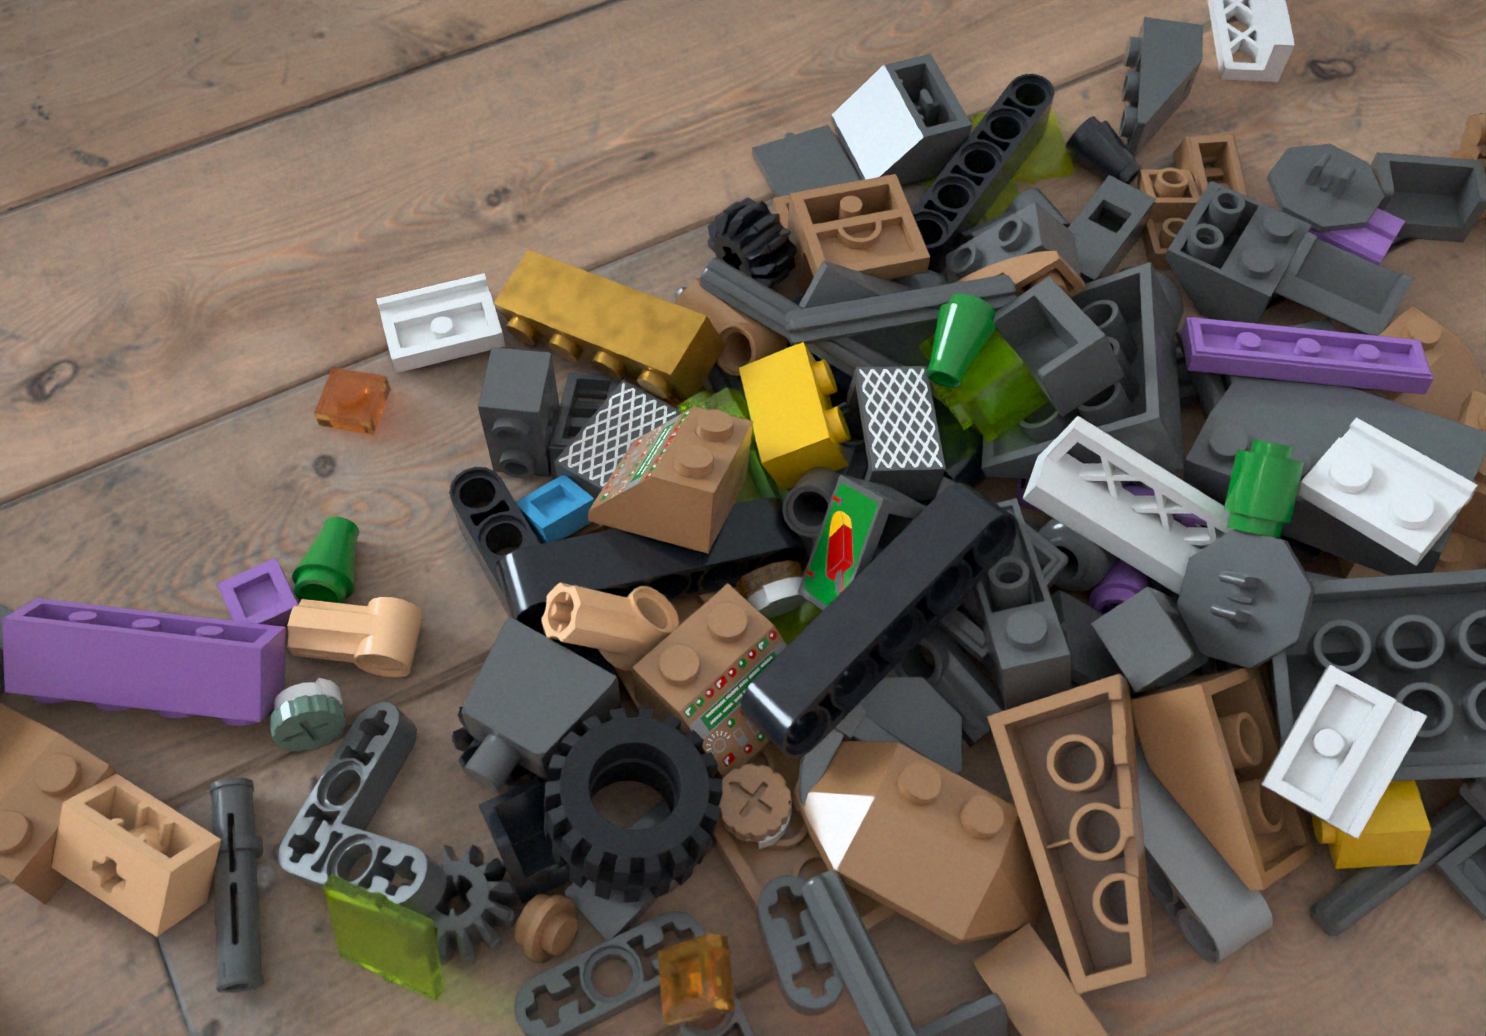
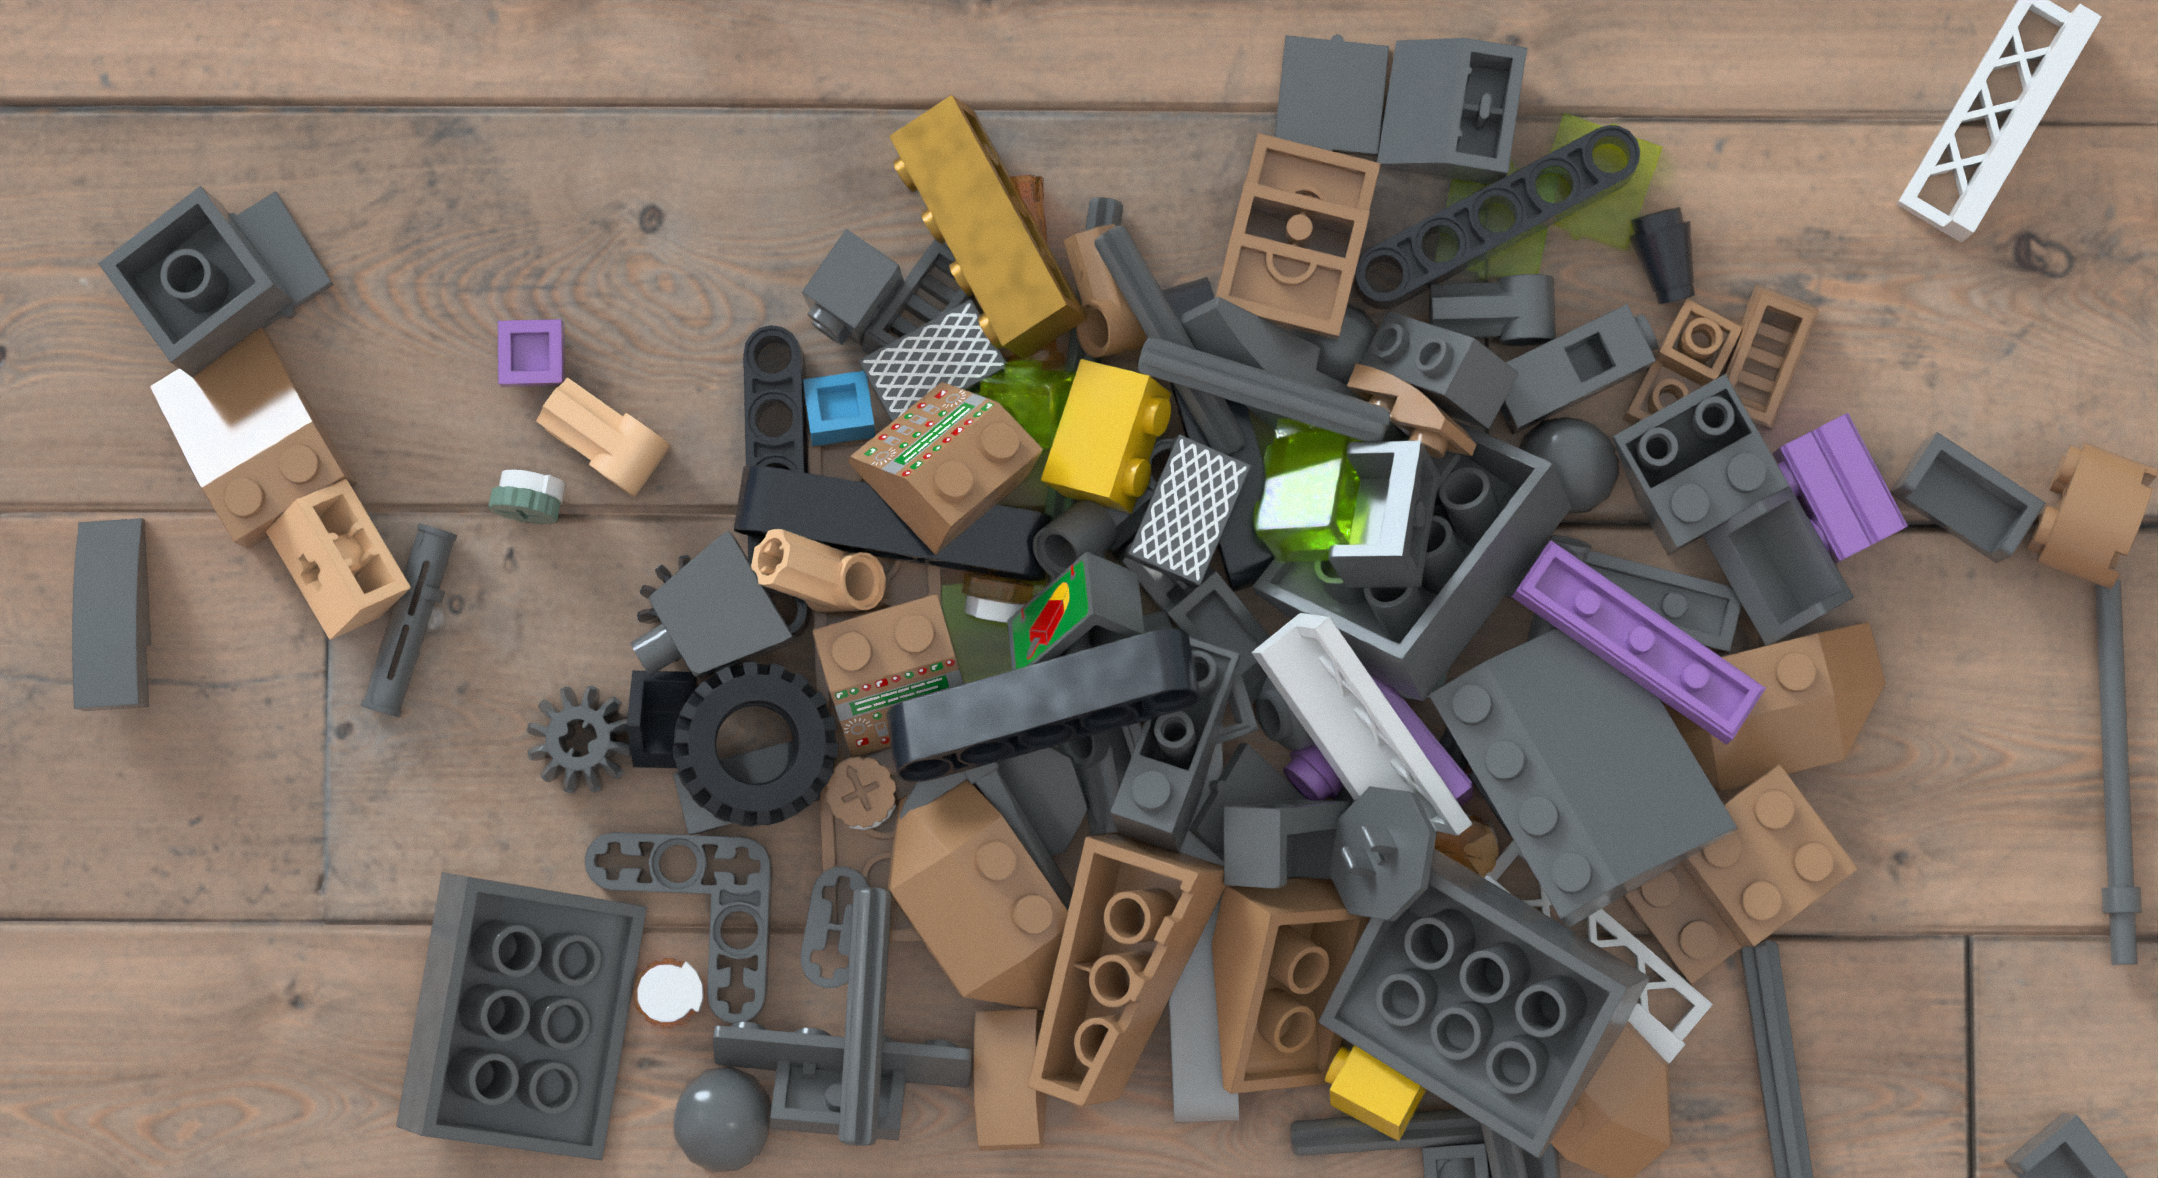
camera: 35 degrees right, 25 degrees up
(144, 660) = (408, 373): medium lavender brick -> none
(329, 564) = (608, 346): green cone -> none
(346, 840) = (508, 634): dark grey beam -> none
(352, 401) = (708, 160): clear orange plate -> none
(384, 937) = (507, 743): clear neon green piece -> none
(440, 323) = (833, 112): white plate -> none
(546, 927) = (644, 796): medium nougat plate -> none
(696, 980) = (736, 911): clear orange plate -> none
(753, 241) = (1192, 194): black gear -> none
(959, 337) = (1292, 460): green cone -> none
(1160, 78) = (1813, 179): dark grey slope -> none
(1263, 488) = (1452, 774): green brick -> none
(1325, 187) = (1848, 443): dark grey piece -> none
(1343, 751) = (1363, 1027): white plate -> none
(1386, 491) = (1549, 840): white plate -> none

